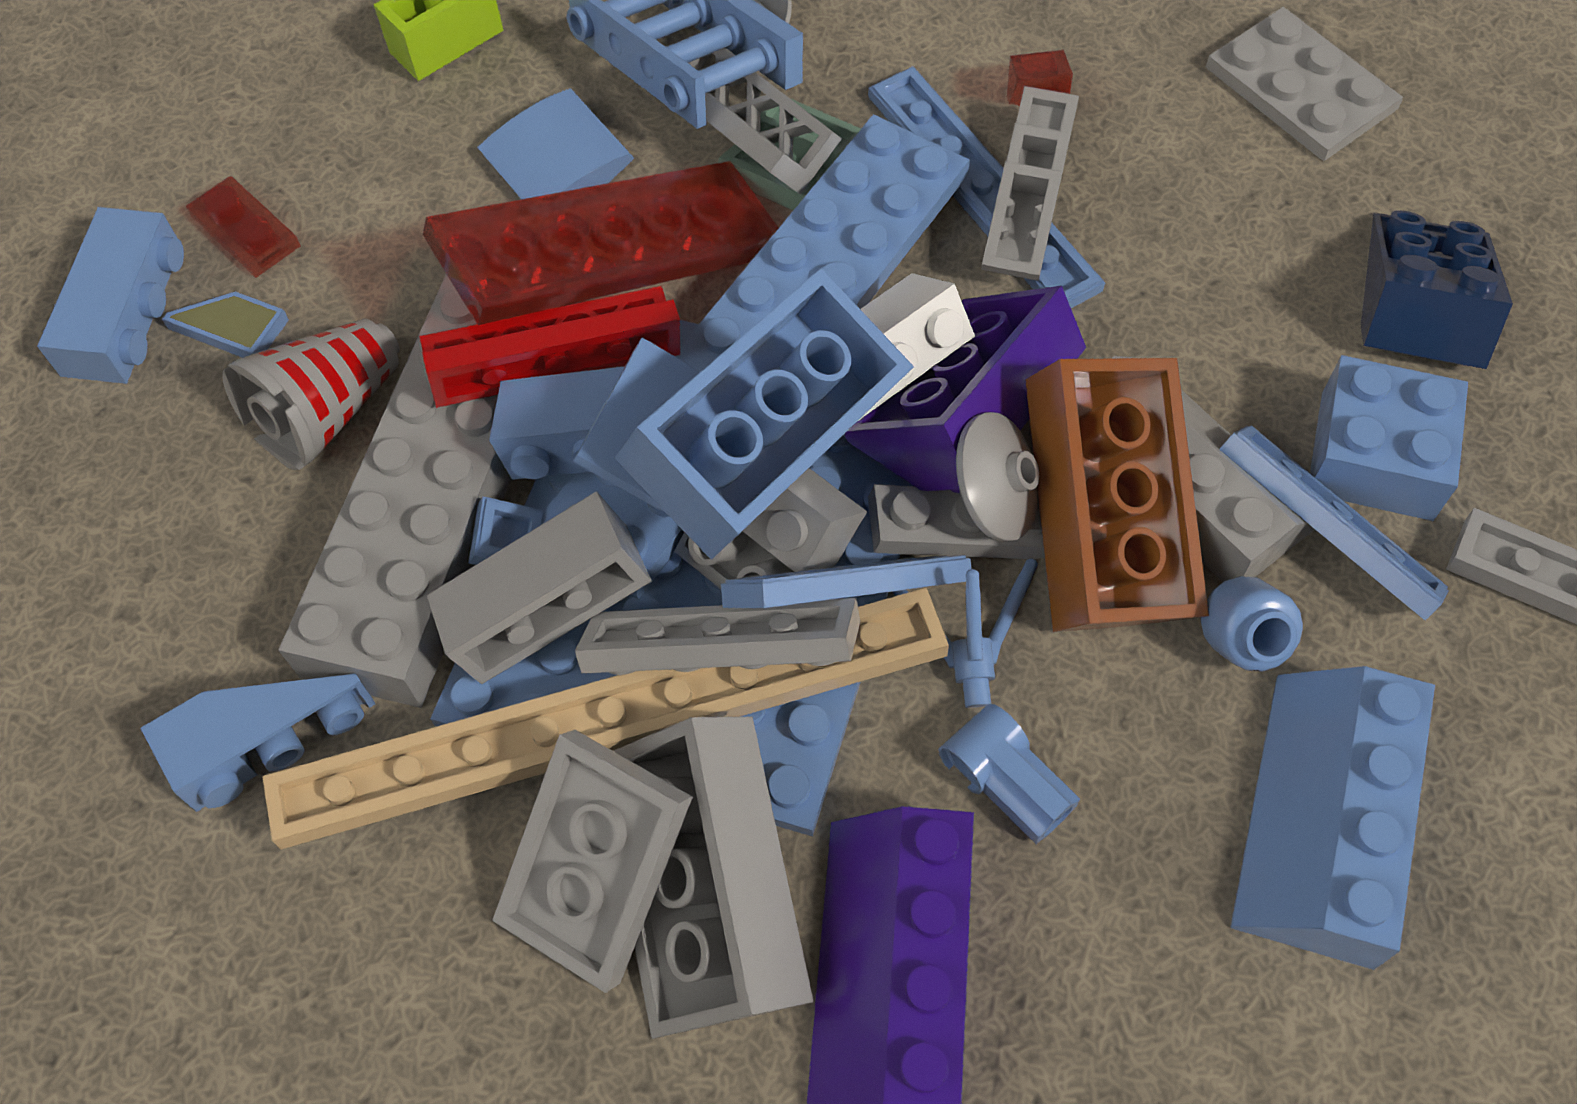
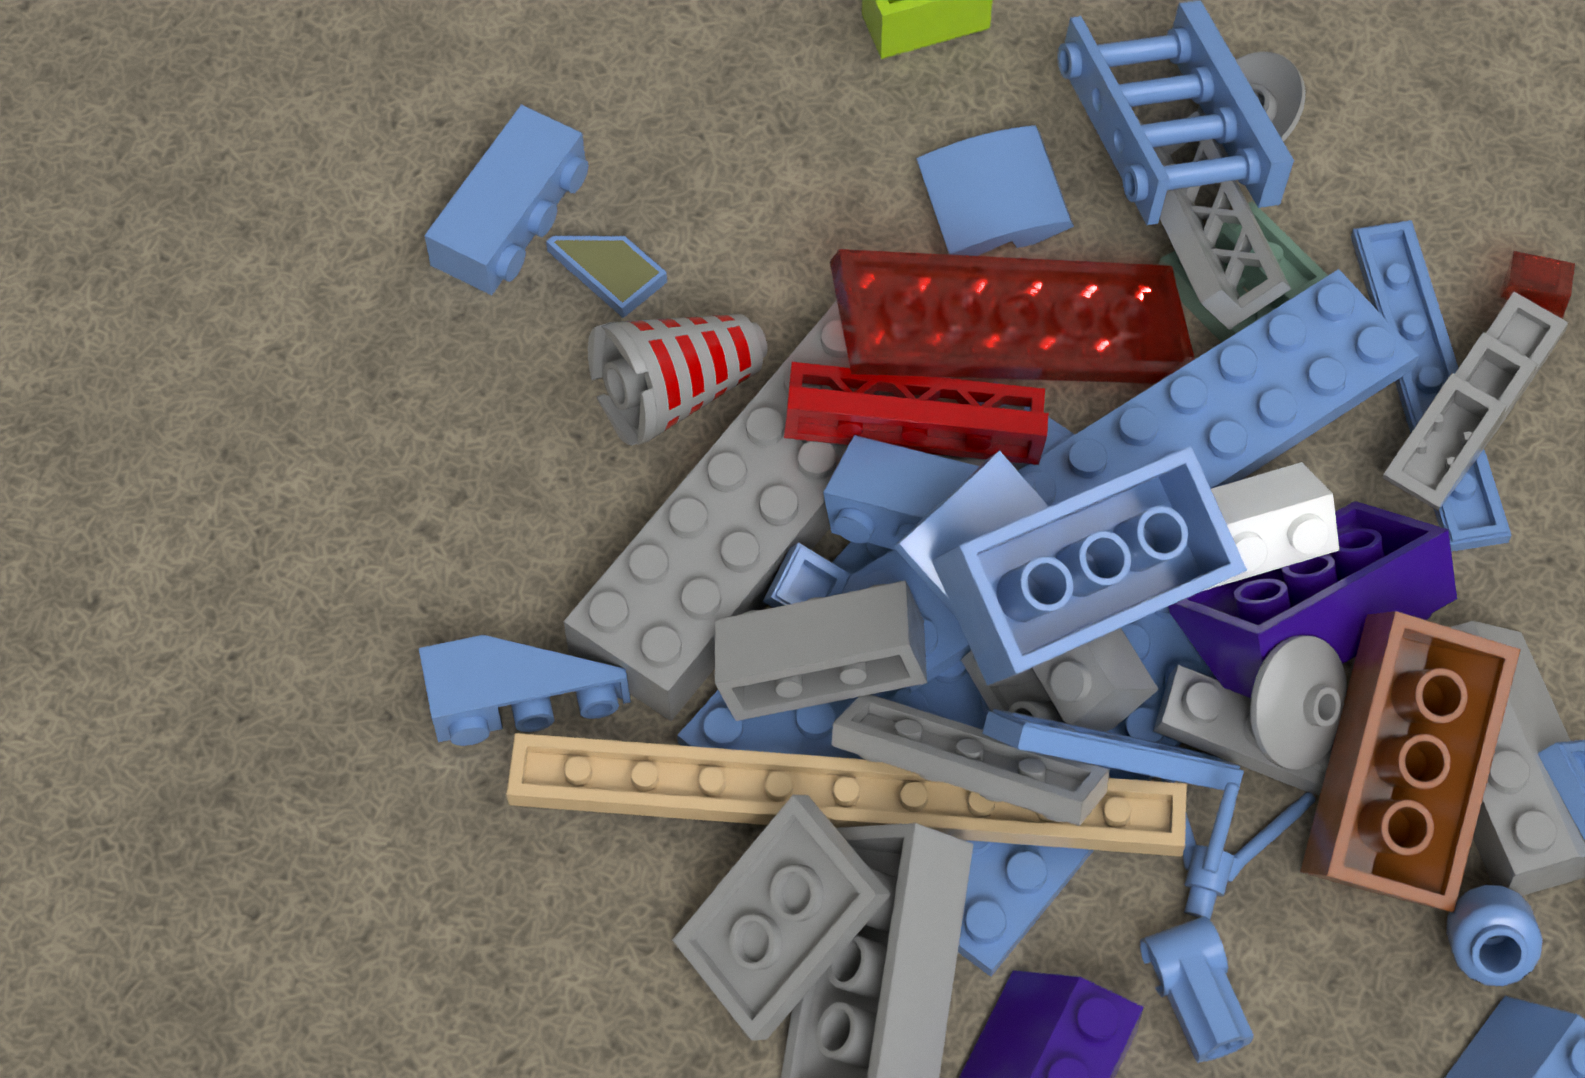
camera: 20 degrees right, 0 degrees up
(243, 226) = (653, 165): clear red plate -> none

